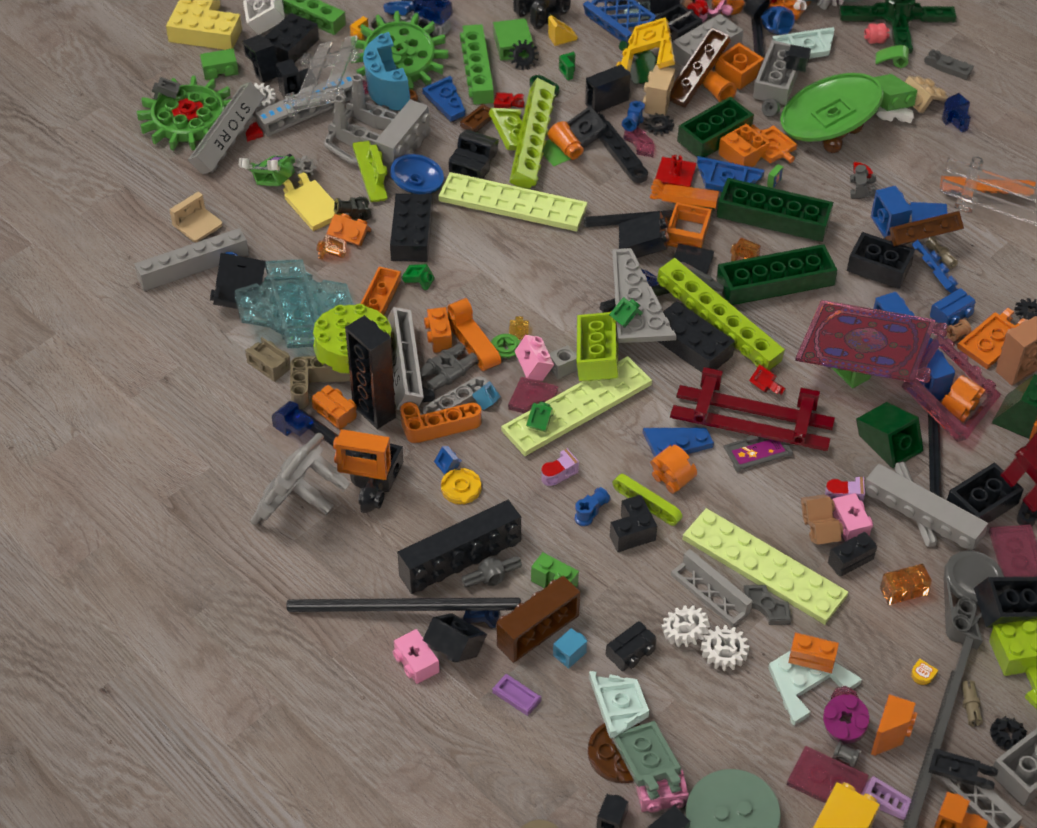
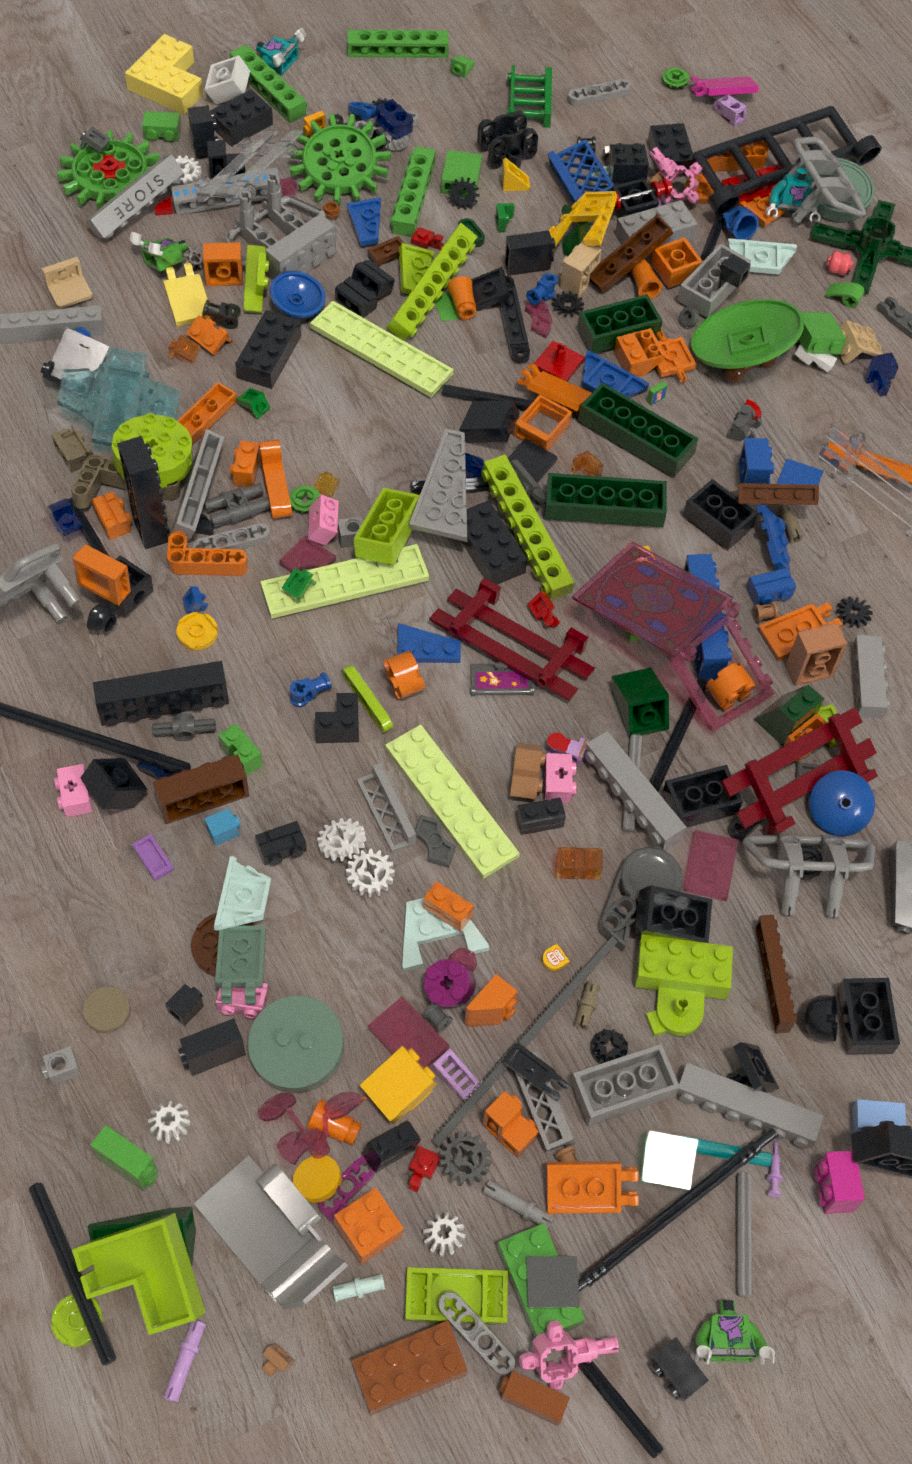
camera: 15 degrees right, 10 degrees up
(336, 165) = (223, 264): none -> orange brick
(384, 81) = (304, 172): dark azure cylinder -> none
(486, 395) = (262, 545): dark azure slope -> none
(560, 469) = (296, 642): lavender leg -> none
(625, 311) = (426, 498): green bracket -> none

